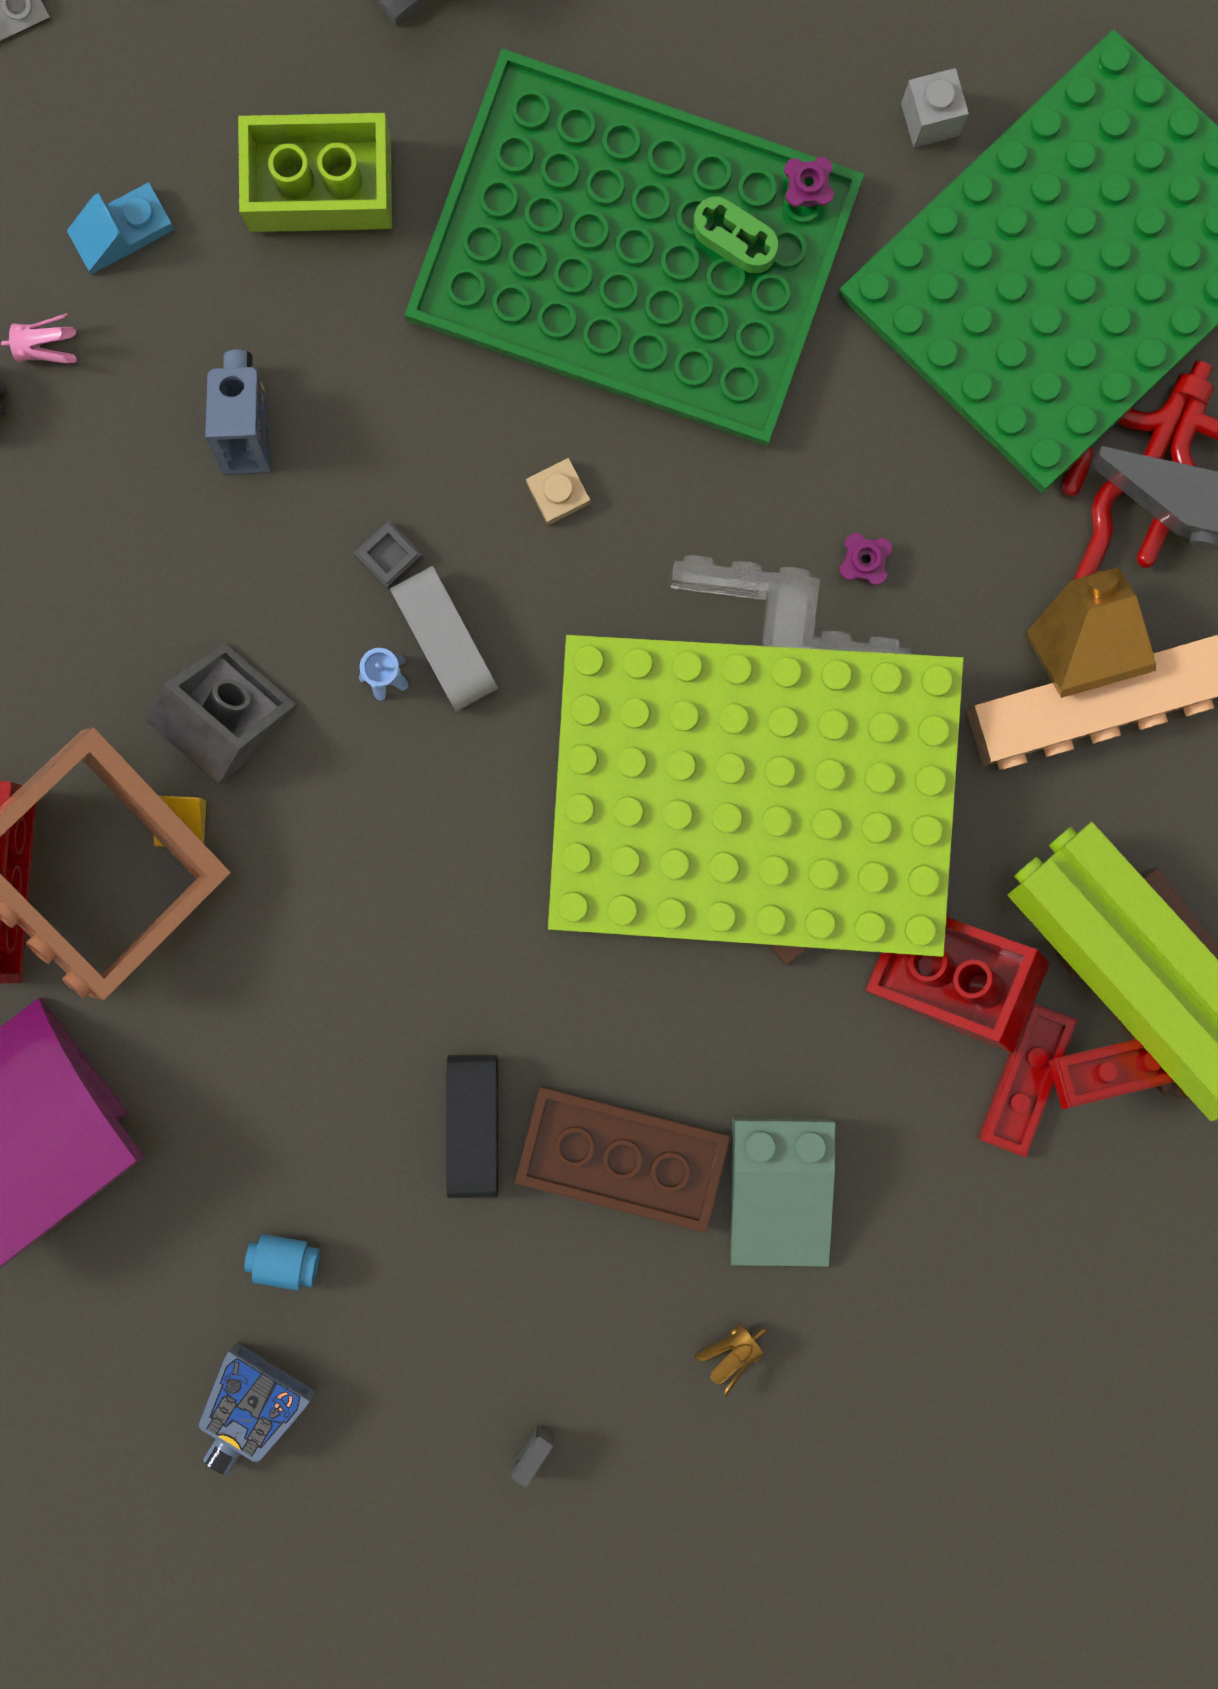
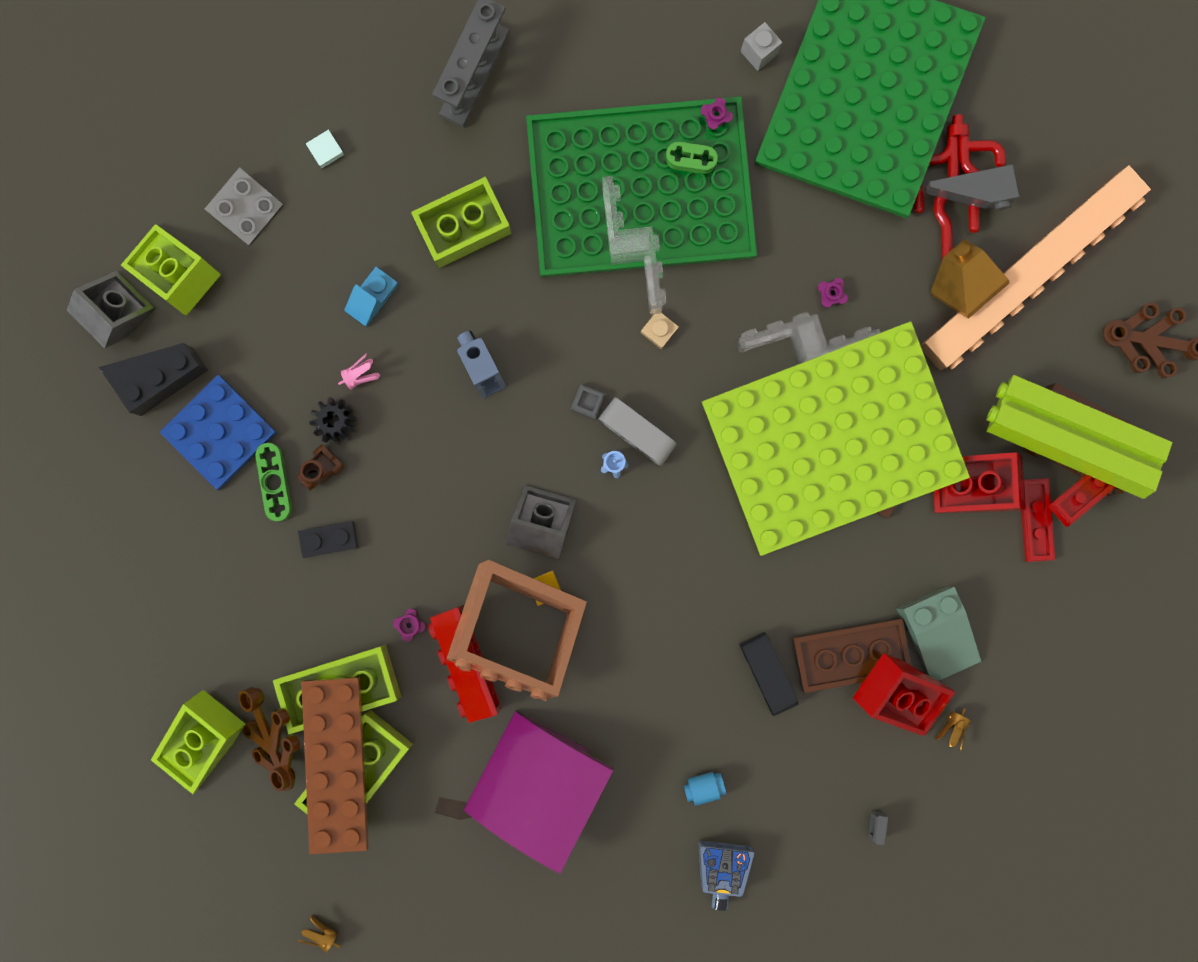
camera: 25 degrees left, 0 degrees up
(572, 331) = (633, 245): none -> clear bracket
(670, 1261) = (902, 695): none -> red slope

